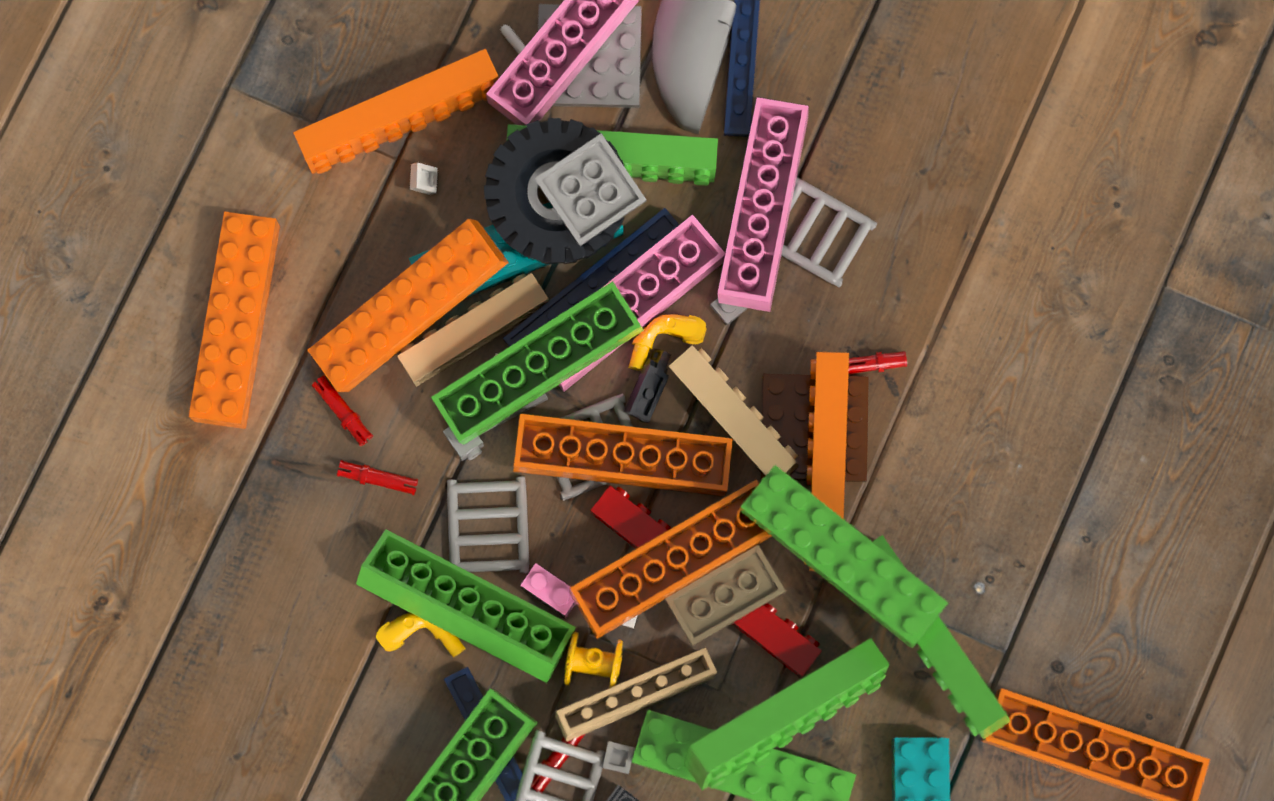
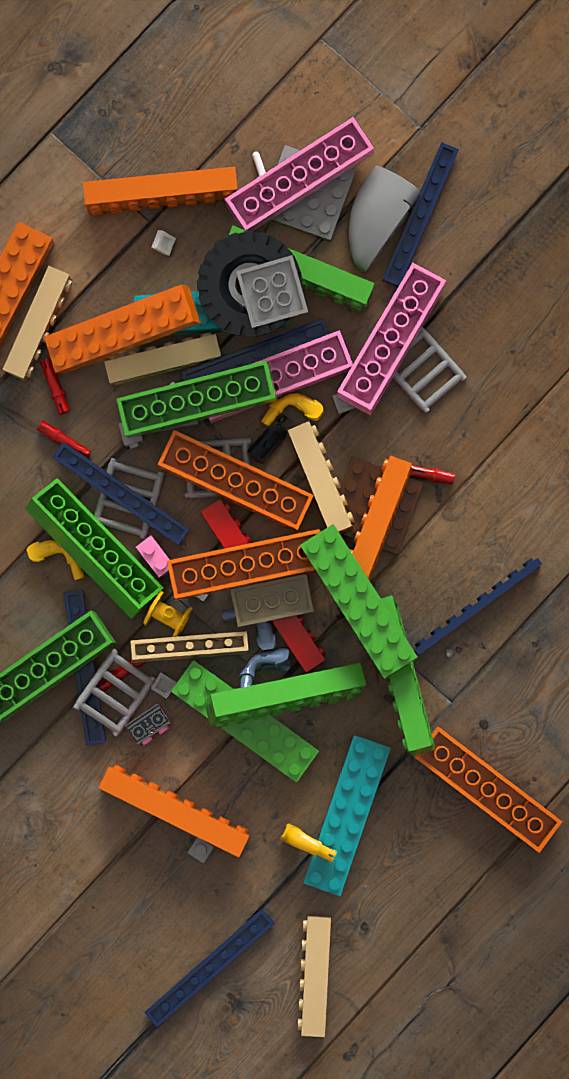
camera: 20 degrees right, 5 degrees up
(292, 337) = (37, 323): none -> tan brick
(476, 522) = (120, 493): none -> dark blue plate
(733, 647) = (266, 637): none -> sand blue piece
(749, 675) = (265, 660): none -> sand blue piece
(1000, 503) = (470, 610): none -> dark blue plate

